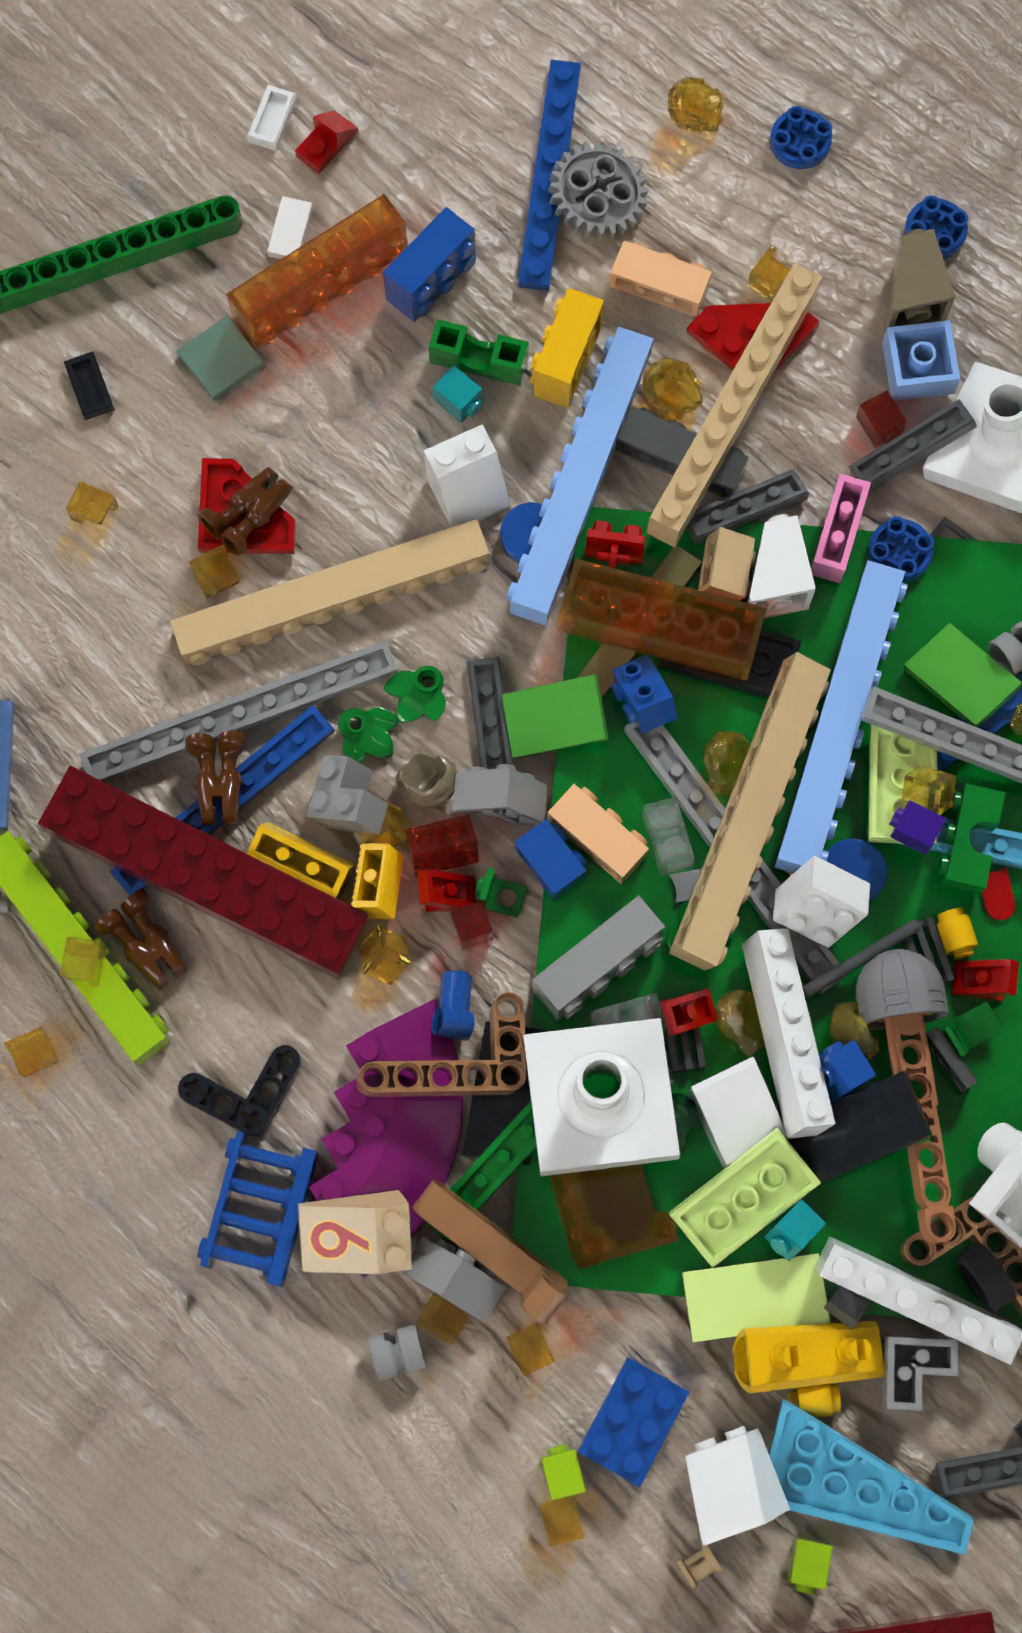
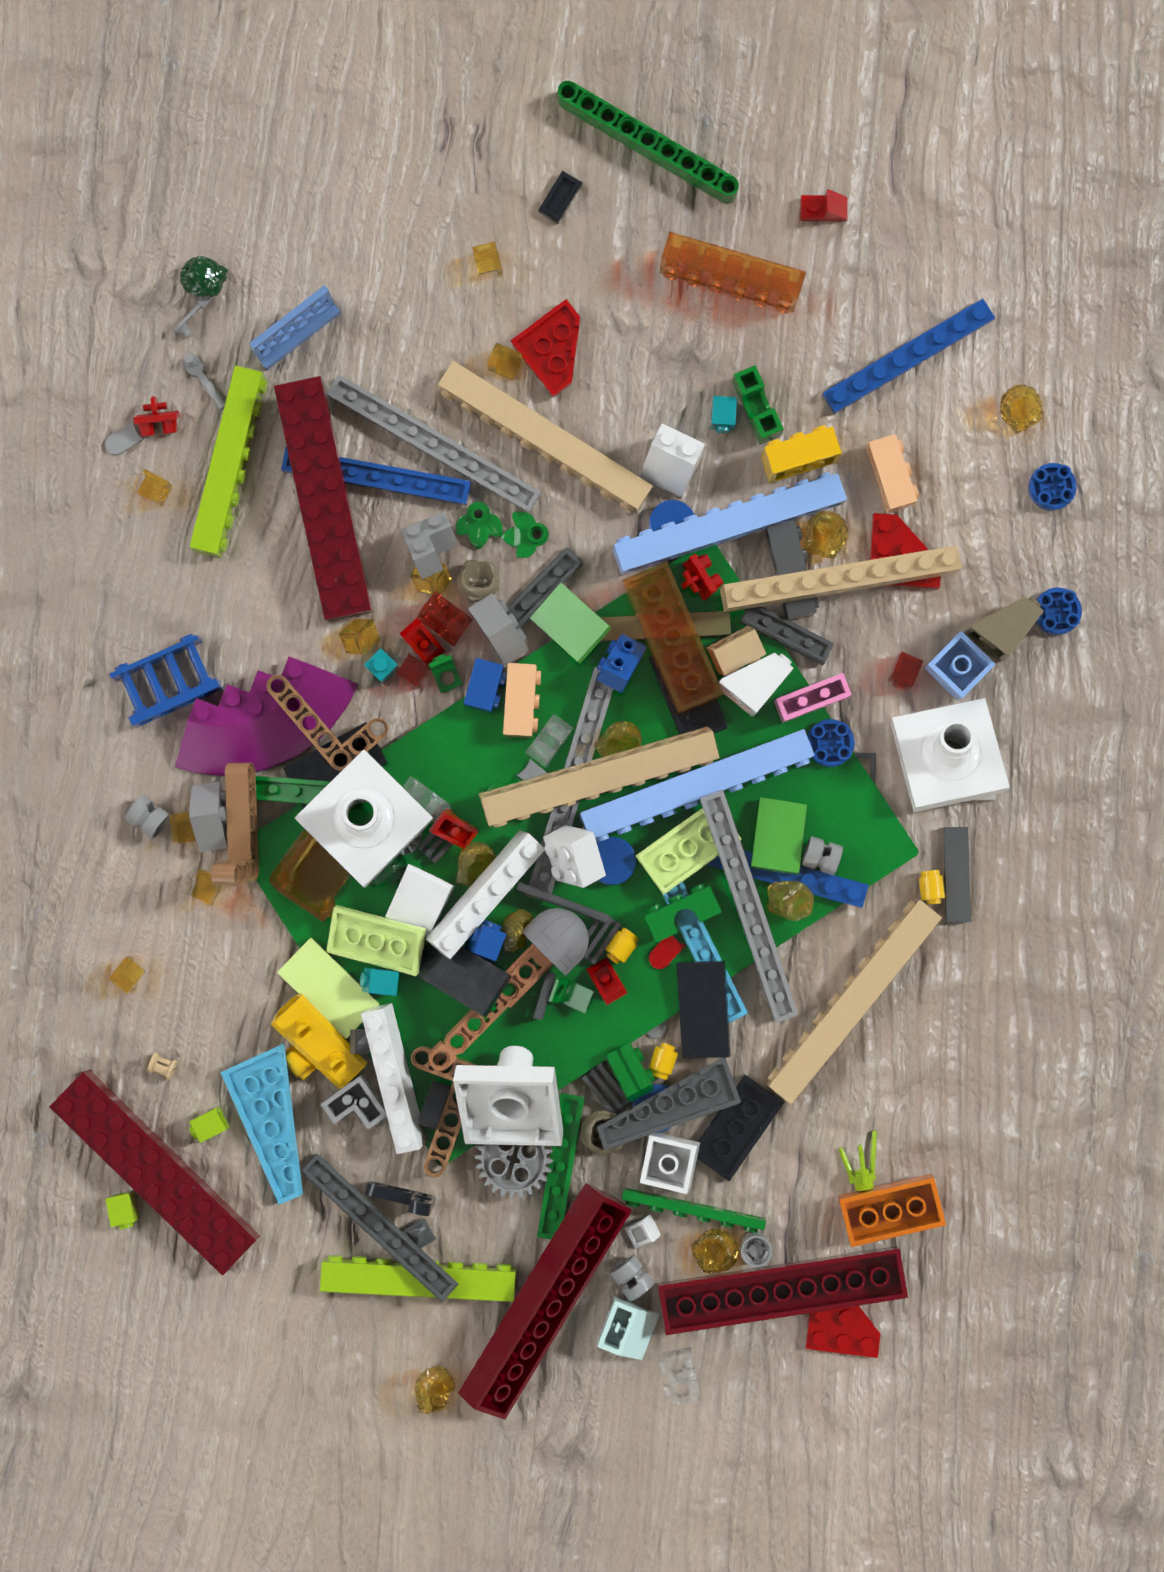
camera: 50 degrees right, 10 degrees up
(83, 960) = (219, 474): clear yellow panel -> none
(145, 952) = (256, 502): reddish brown piece -> none
(208, 785) = (376, 463): reddish brown piece -> none
(220, 358) = (637, 258): sand green tile -> none
(254, 1101) = (223, 631): black beam -> none
(258, 499) = (561, 350): reddish brown piece -> none
(272, 118) = (812, 164): white tile -> none
(289, 227) = (750, 232): white tile -> none
(301, 859) = (375, 546): yellow brick -> none
(356, 1234) = (189, 744): tan slope -> none
(378, 880) = (396, 599): yellow brick -> none
(430, 265) = (788, 333): blue brick -> none
(437, 954) = (382, 666): none -> teal brick
(452, 1015) = (355, 701): blue piece -> none
(562, 1472) = (154, 956): lime brick -> none
(583, 167) = (925, 372): light grey gear -> none
(598, 959) = (444, 756): light grey brick -> none
(633, 1421) = (209, 972): blue brick -> none
(734, 1485) = (215, 1053): white slope -> none
(768, 275) = (946, 535): clear yellow panel -> none
(914, 445) = (901, 701): dark grey tile -> none
(916, 827) = (660, 876): dark purple brick -> none
(929, 789) = (688, 867): clear yellow panel -> none

